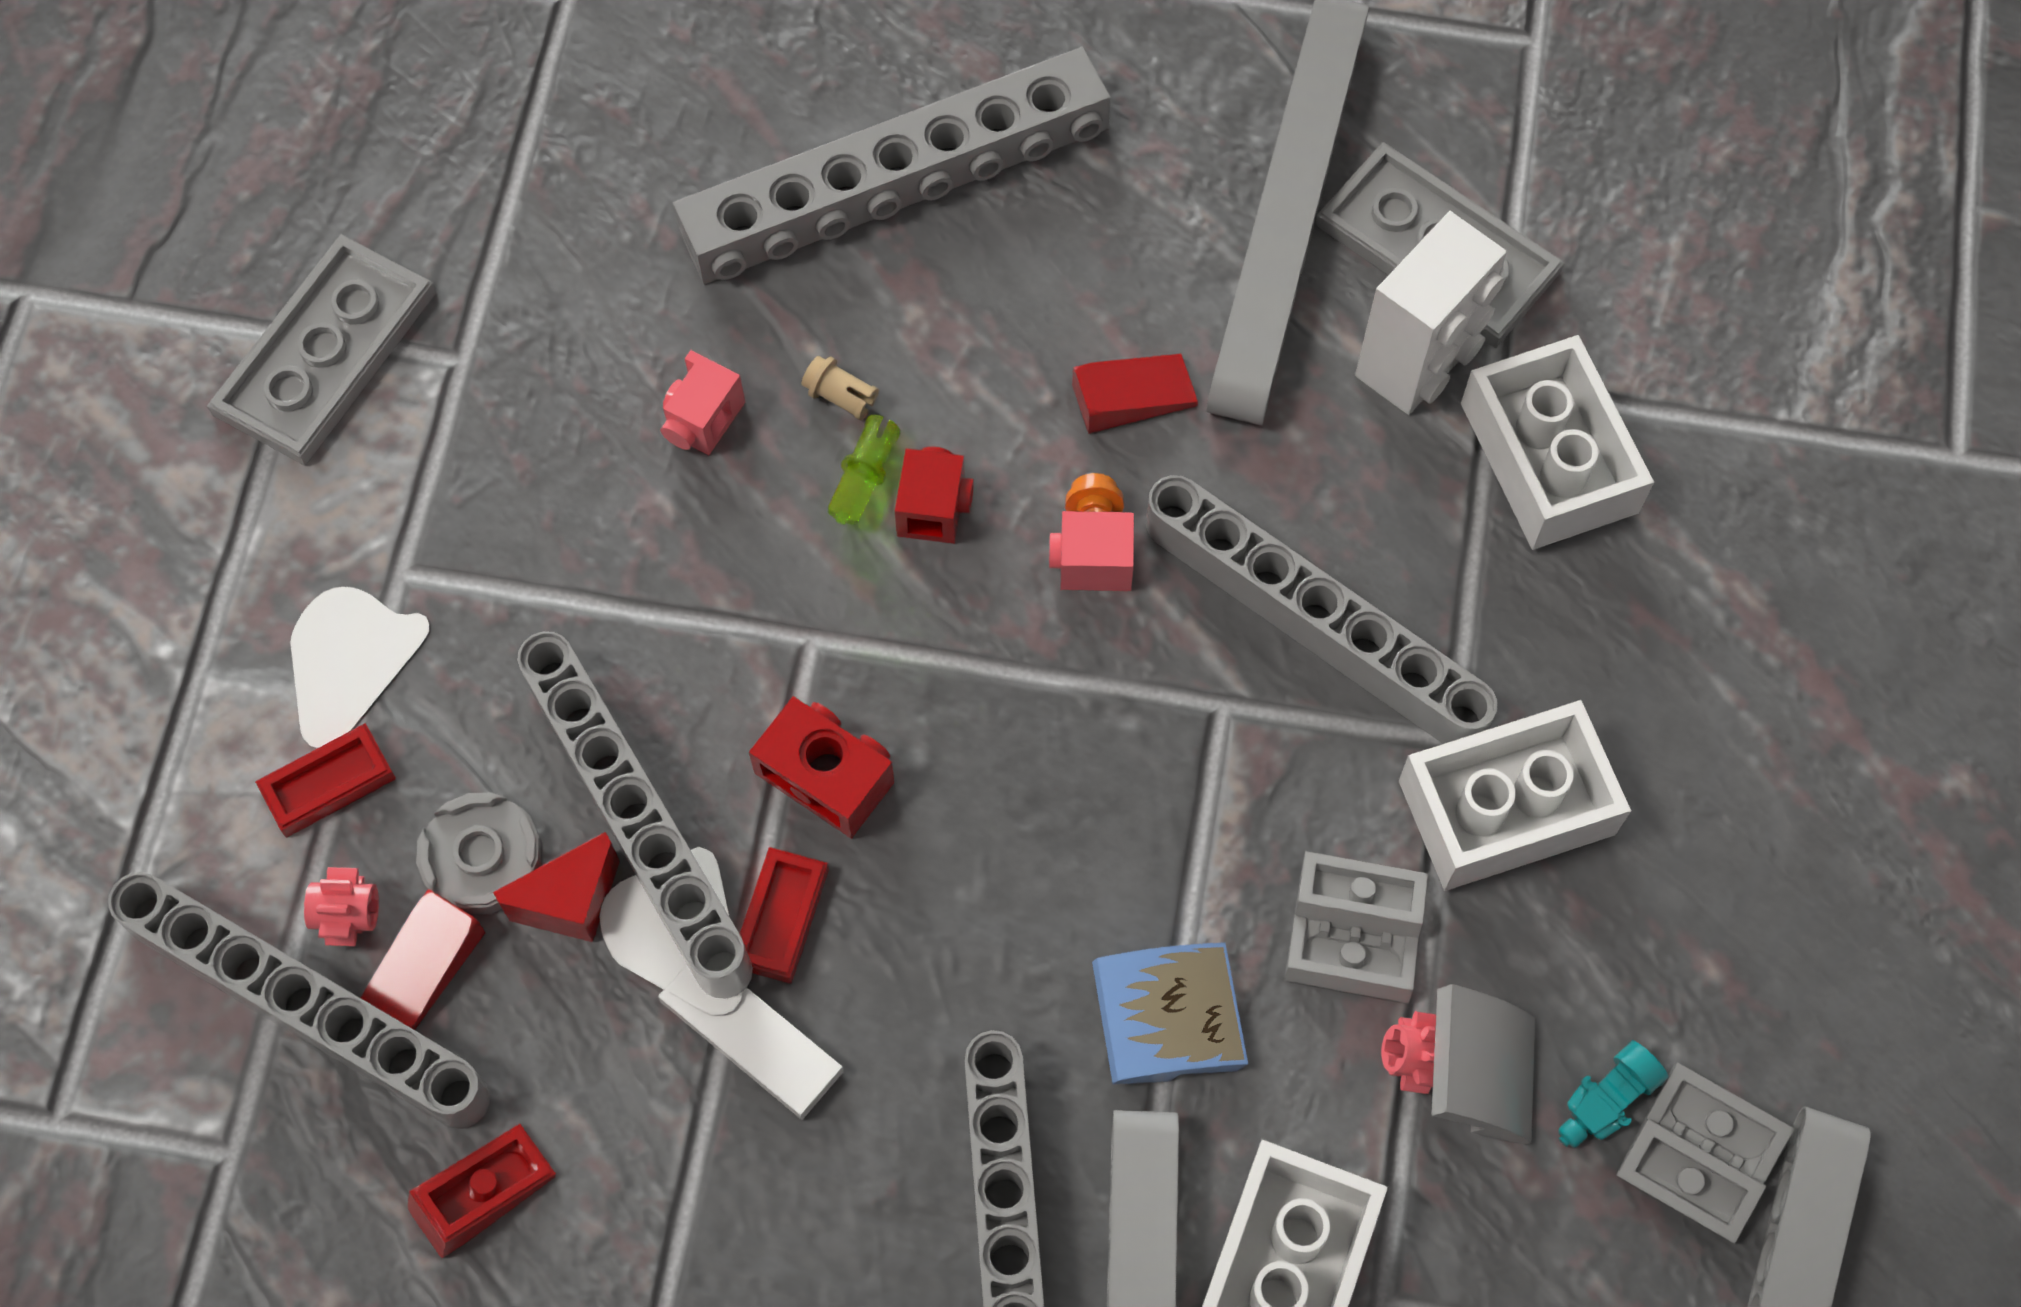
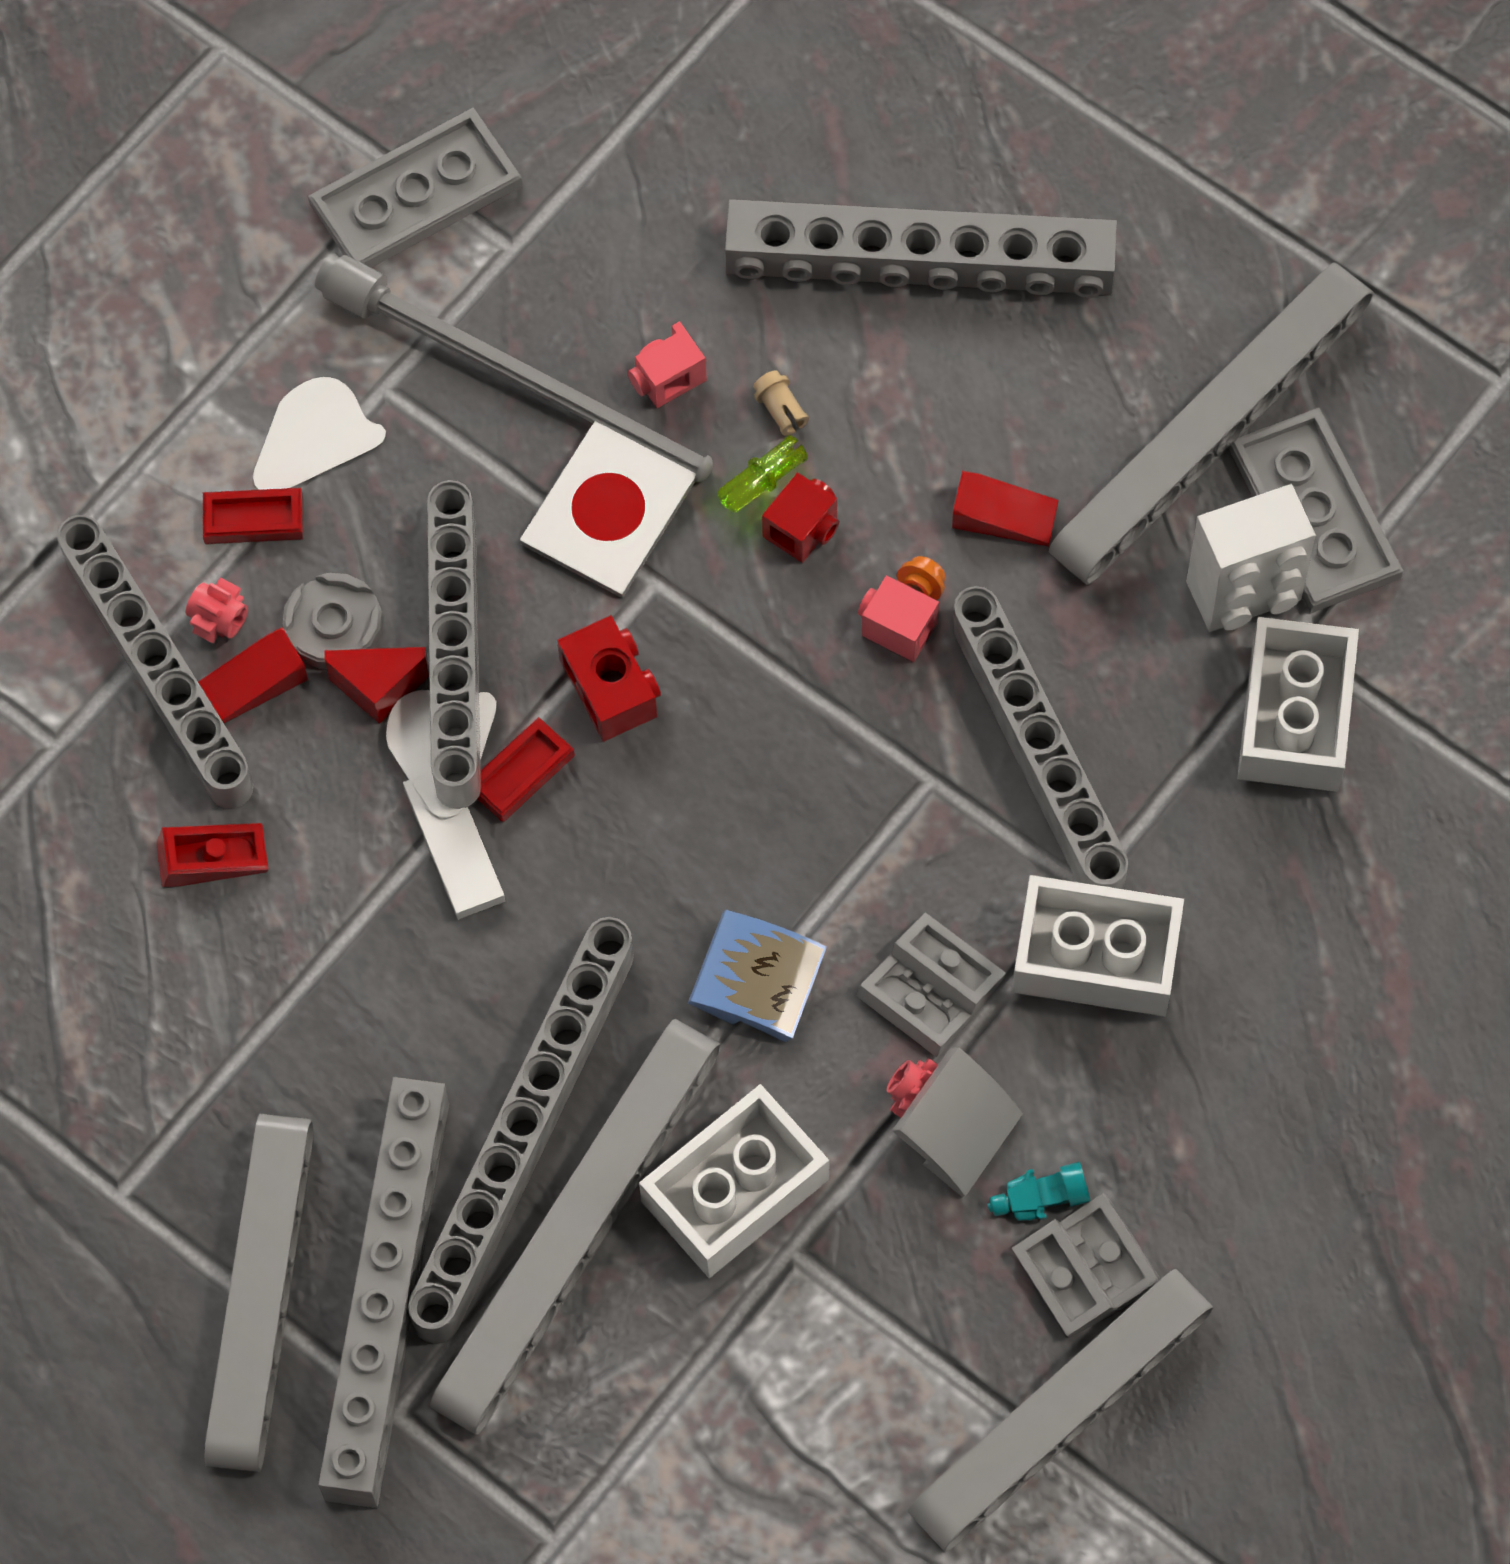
camera: 30 degrees right, 0 degrees up
(713, 551) = (616, 485): none -> flag

